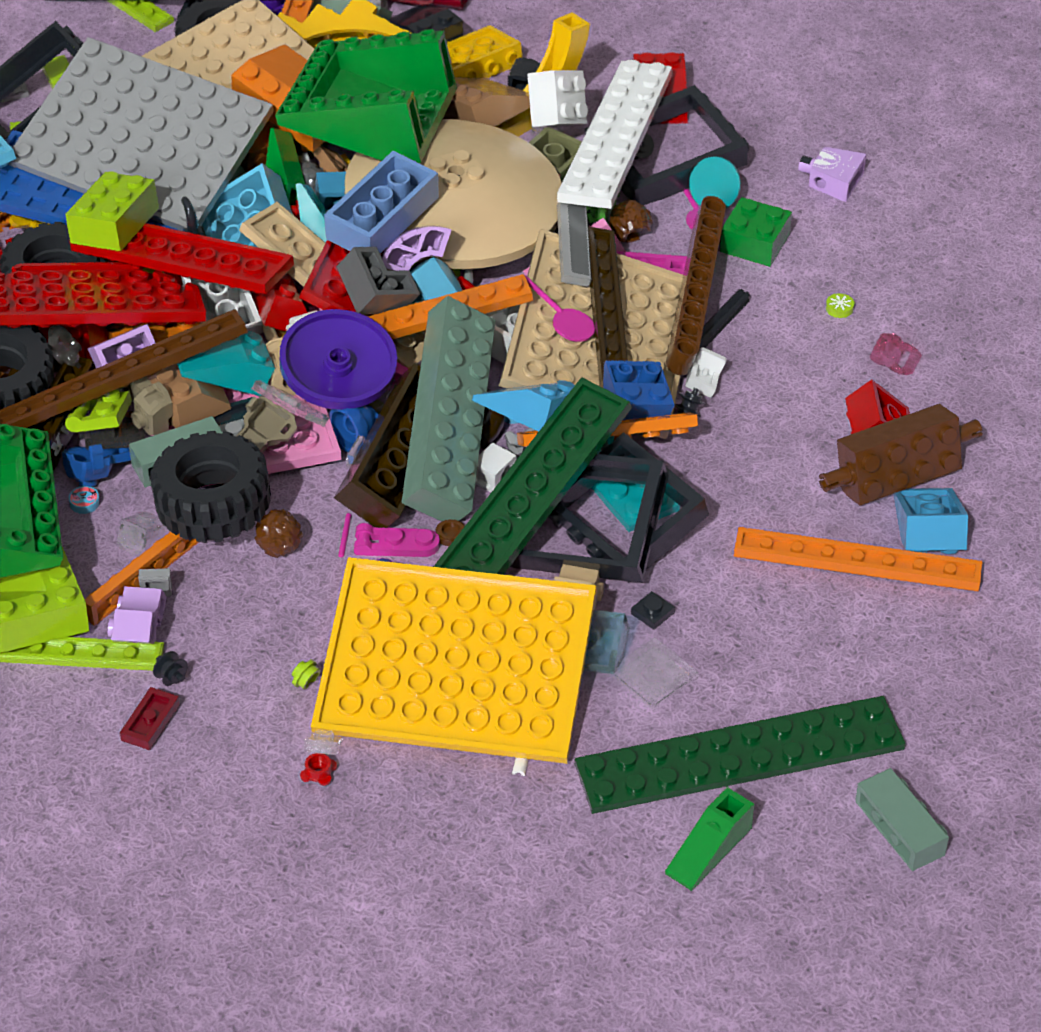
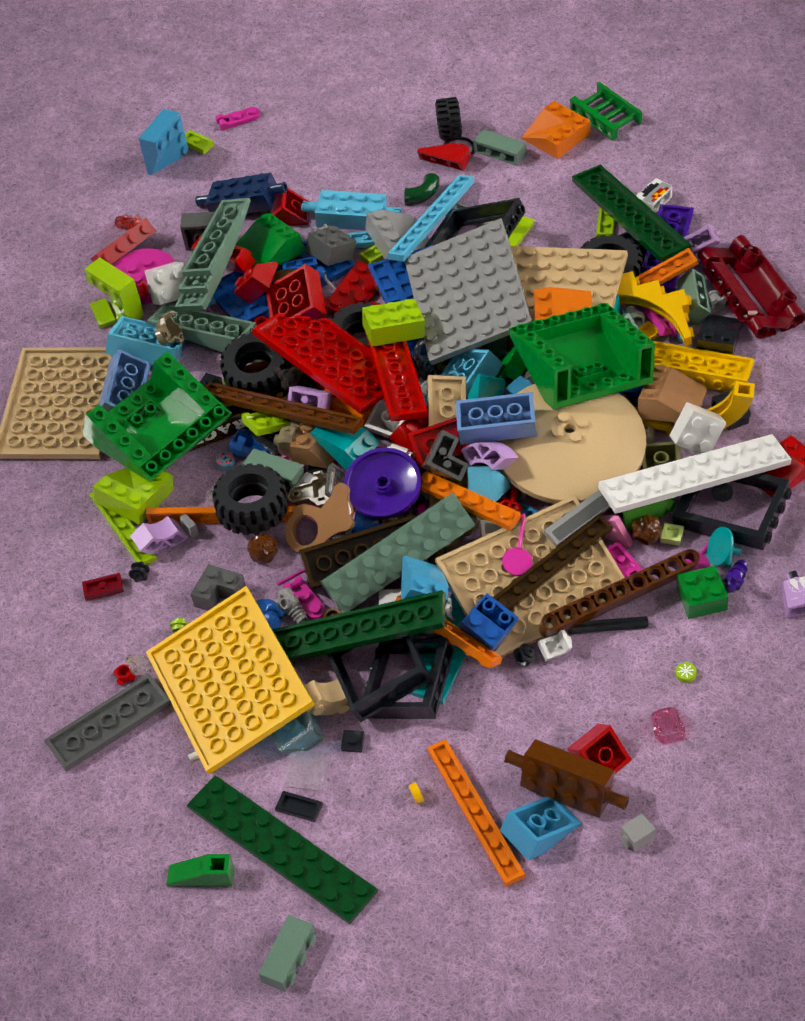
camera: 60 degrees right, 5 degrees up
(286, 604) = (215, 583): none -> dark grey brick
(328, 436) = (331, 518): none -> medium nougat animal
(379, 824) = (107, 722): none -> dark grey plate
(398, 550) = (290, 604): none -> light grey piece
(658, 210) = (672, 534): none -> yellowish green plate
(697, 706) = (299, 806): none -> black tile
(767, 196) = (736, 575): none -> dark purple piece
(786, 591) = (416, 793): none -> yellow tile
(1012, 448) = (637, 833): none -> light grey brick

